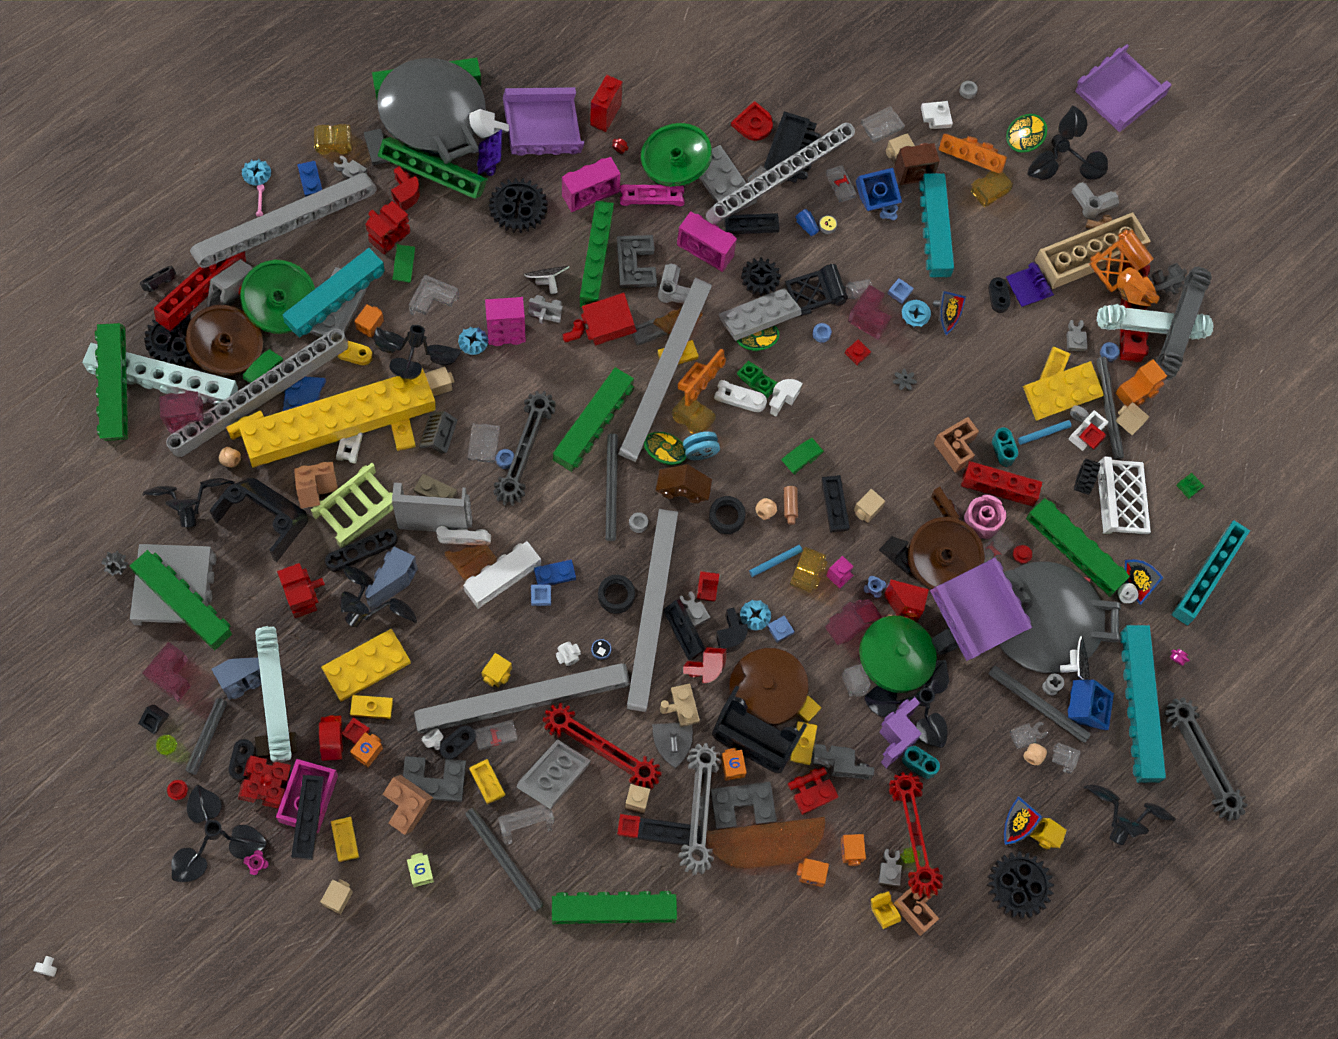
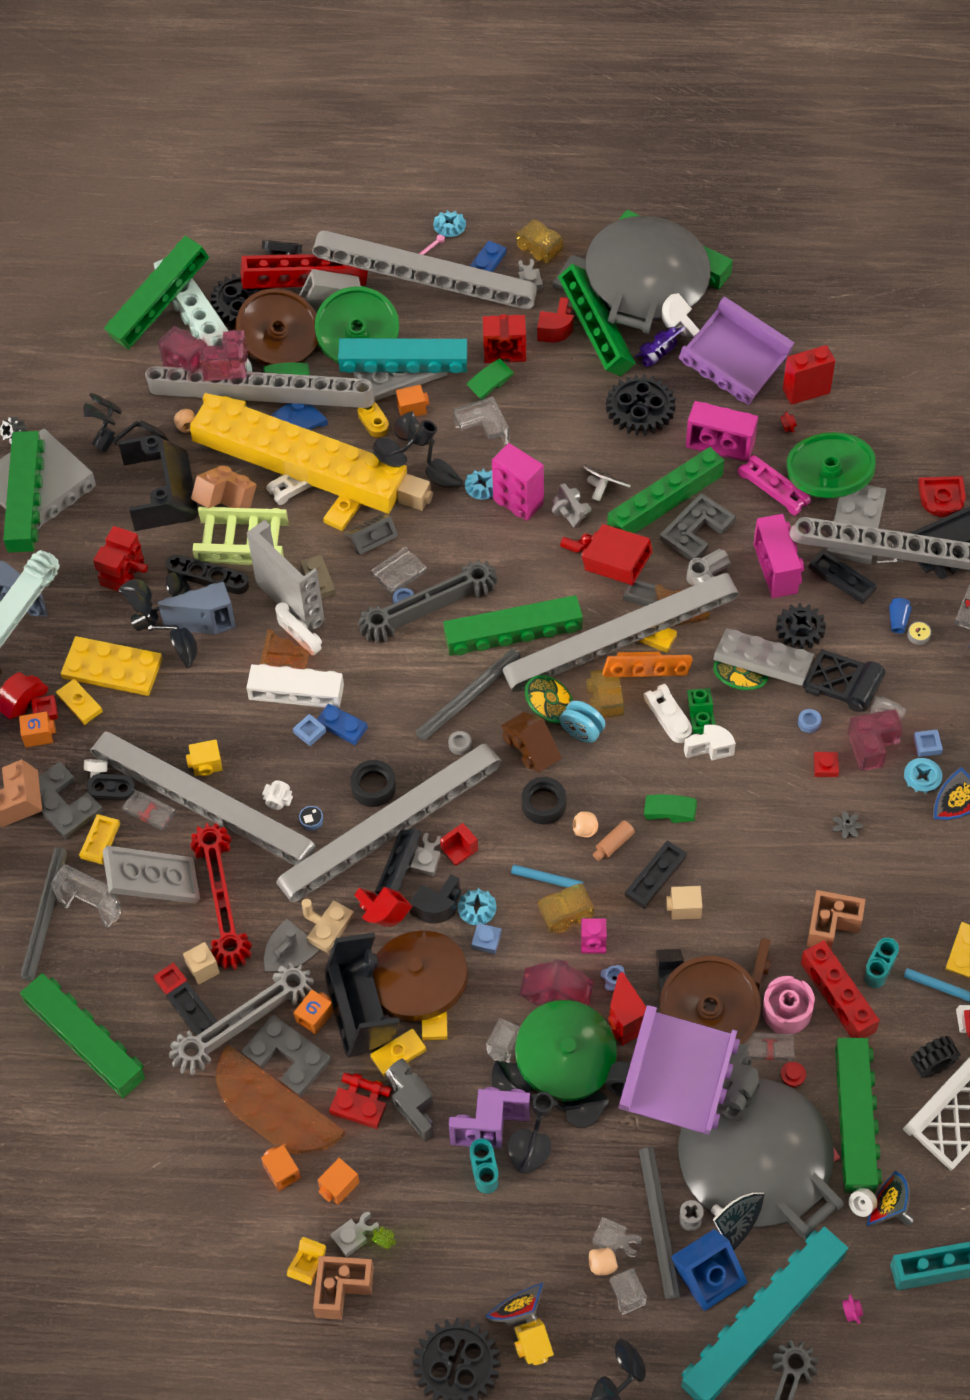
camera: 55 degrees right, 10 degrees down
(223, 390) = (226, 360): none -> clear pink brick
(915, 835) = (363, 1257): red arm -> none

